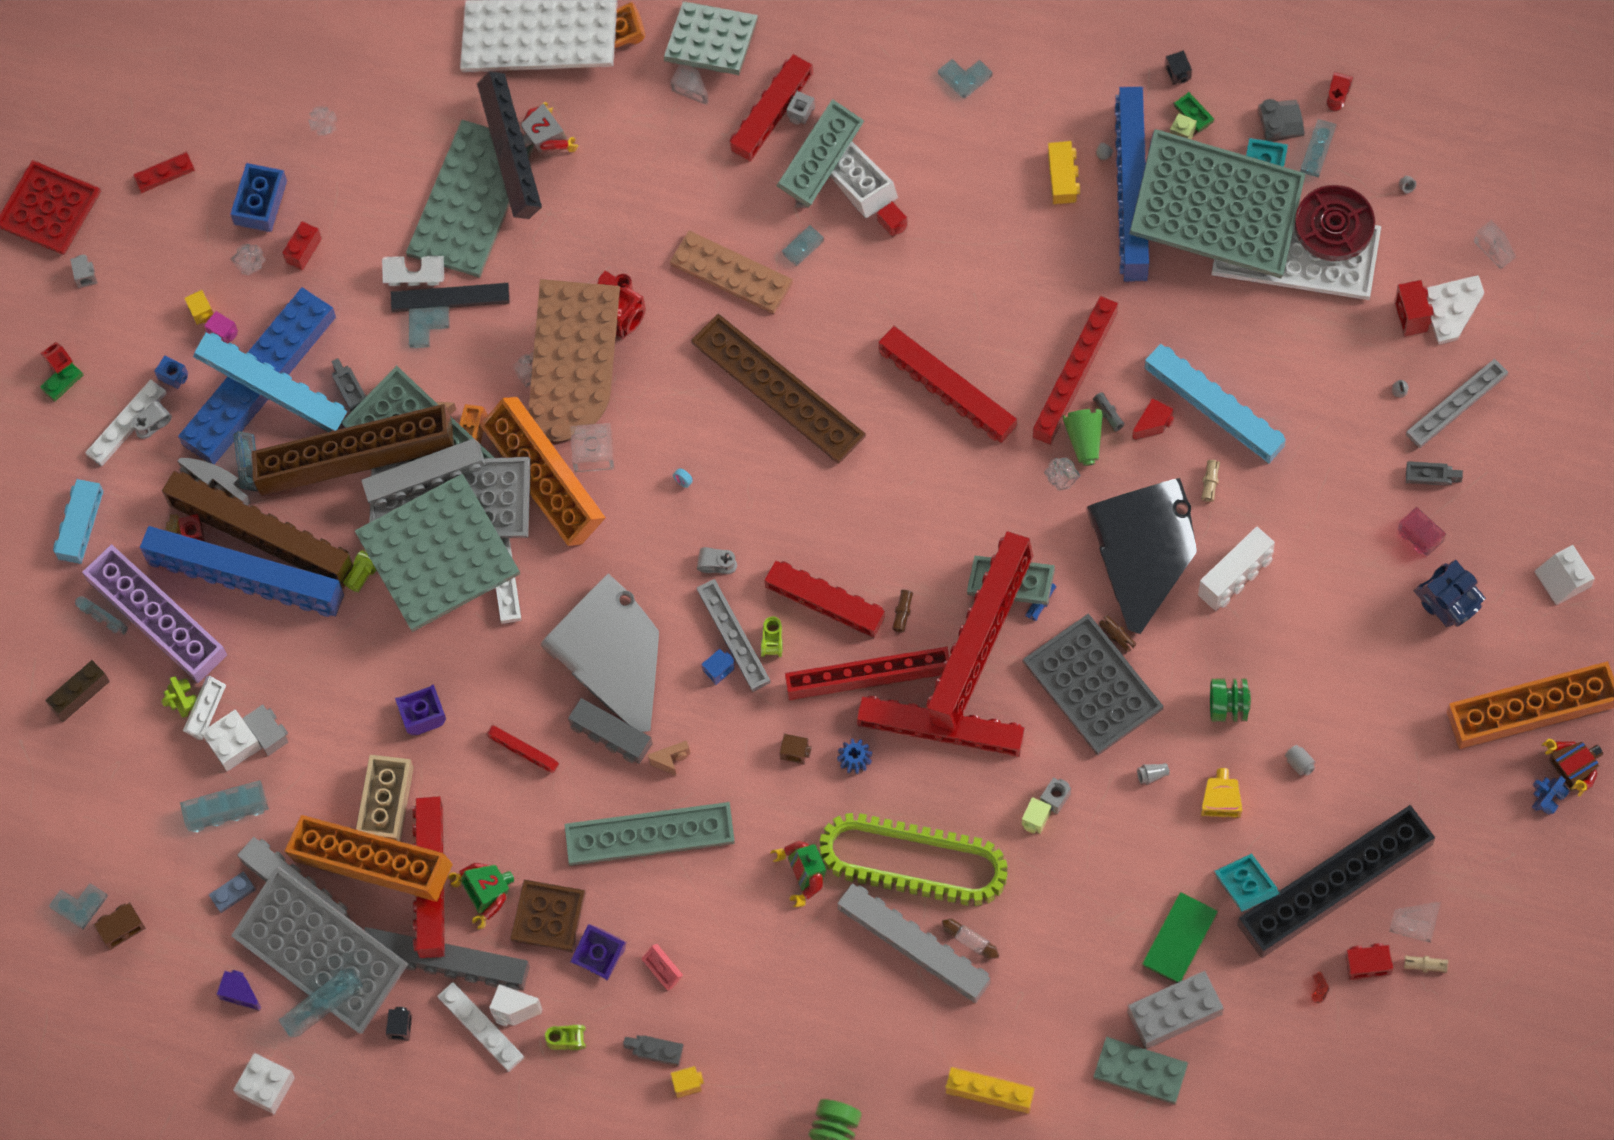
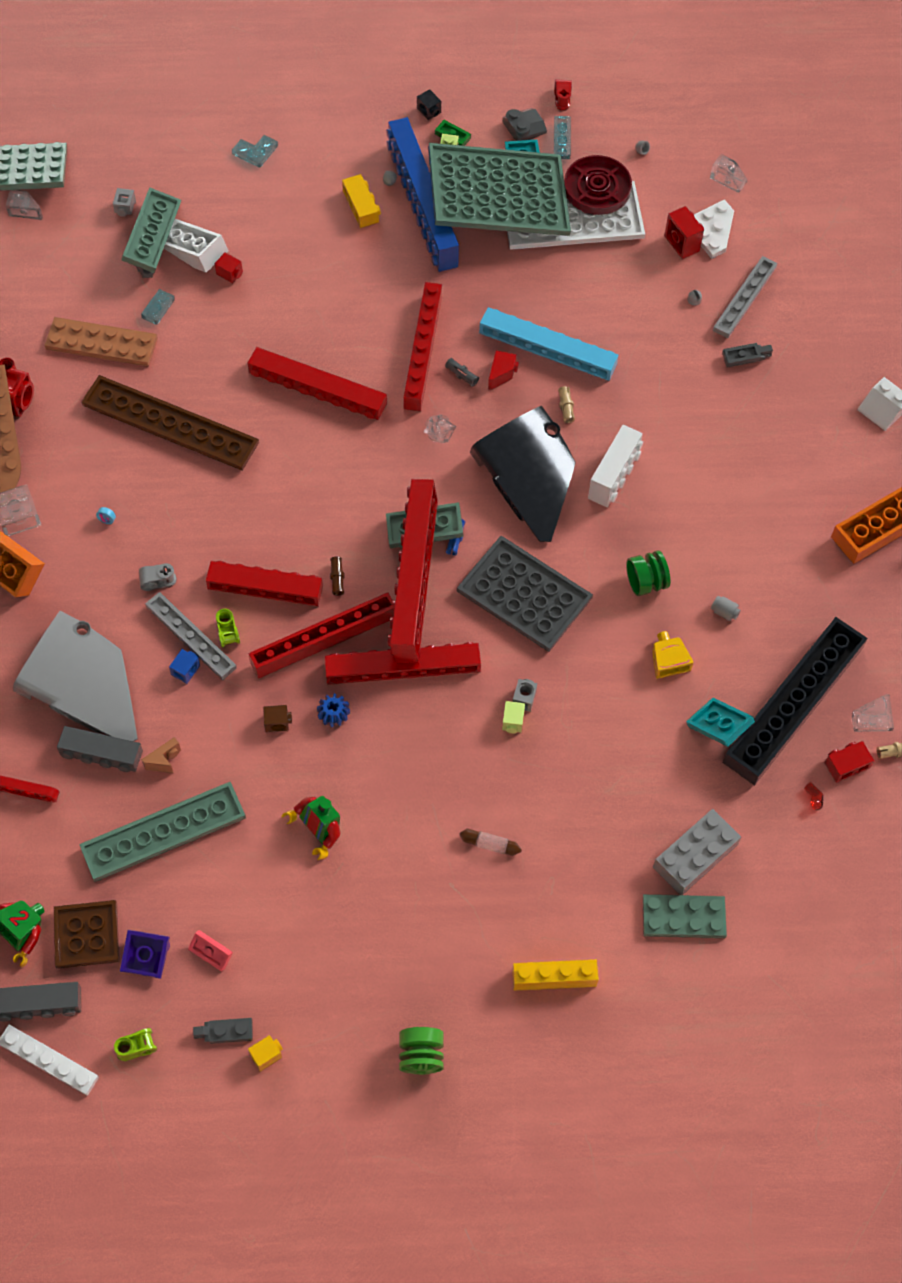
camera: 25 degrees left, 5 degrees down
(513, 1006) = (75, 1030): white slope -> none
(771, 107) = (98, 208): red brick -> none
(832, 862) = (492, 797): lime piece -> none
(914, 943) = (440, 860): light grey brick -> none
(1085, 434) = (448, 391): bright green cone -> none
(1117, 633) = (531, 546): reddish brown pin -> none
(1151, 772) = (601, 653): light grey cone -> none
(1179, 938) = (676, 788): green tile -> none
(1421, 531) = (755, 400): clear pink brick -> none
(1451, 594) = (802, 439): dark blue piece -> none

